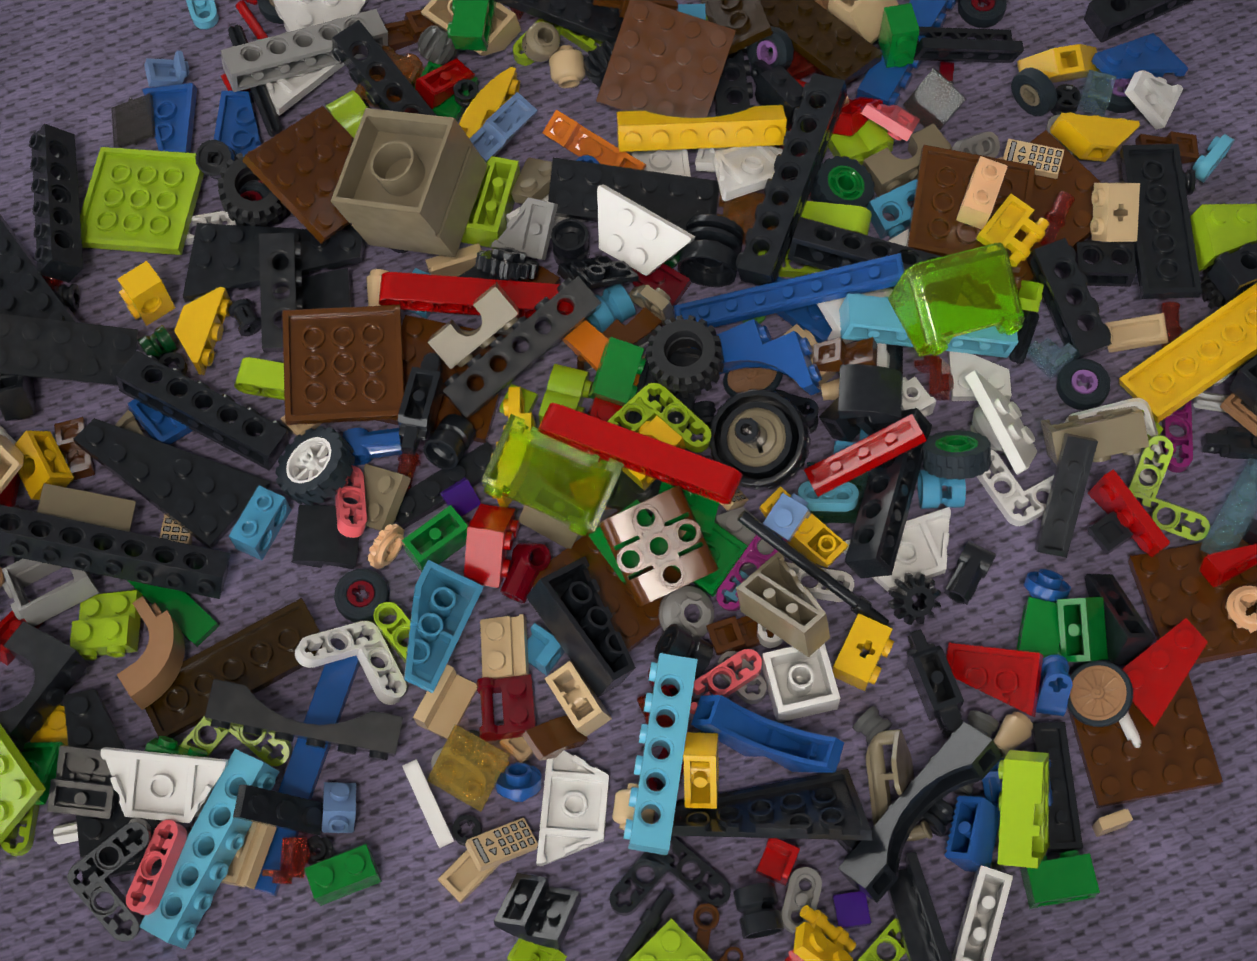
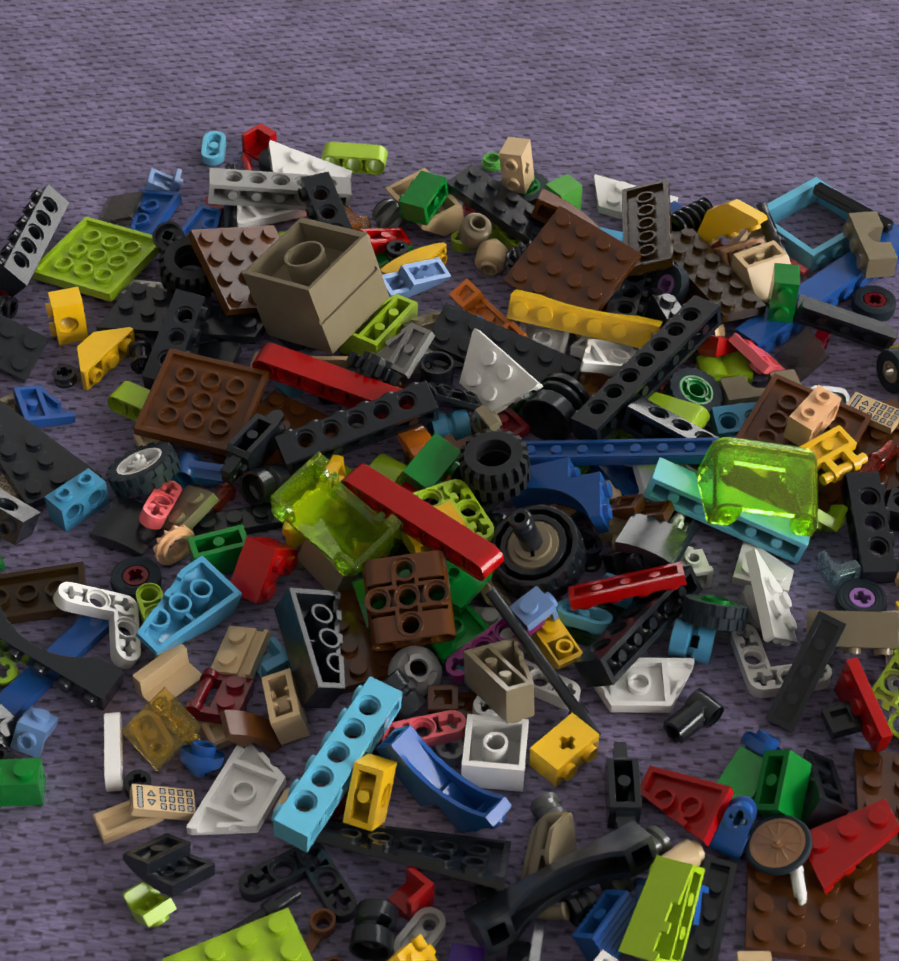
camera: 15 degrees right, 20 degrees down
(151, 347) = (53, 355): dark green wheel -> none
(262, 450) = (71, 407): black brick -> none
(408, 30) = (364, 205): reddish brown slope -> none
(456, 344) = (345, 394): arch -> none
(461, 497) = (257, 526): dark purple tile -> none
(523, 571) = (267, 606): dark red piece -> none
(925, 595) = (641, 721): black gear -> none
(940, 377) = (724, 555): clear red bracket -> none
(1025, 337) = (826, 543): black axle -> none

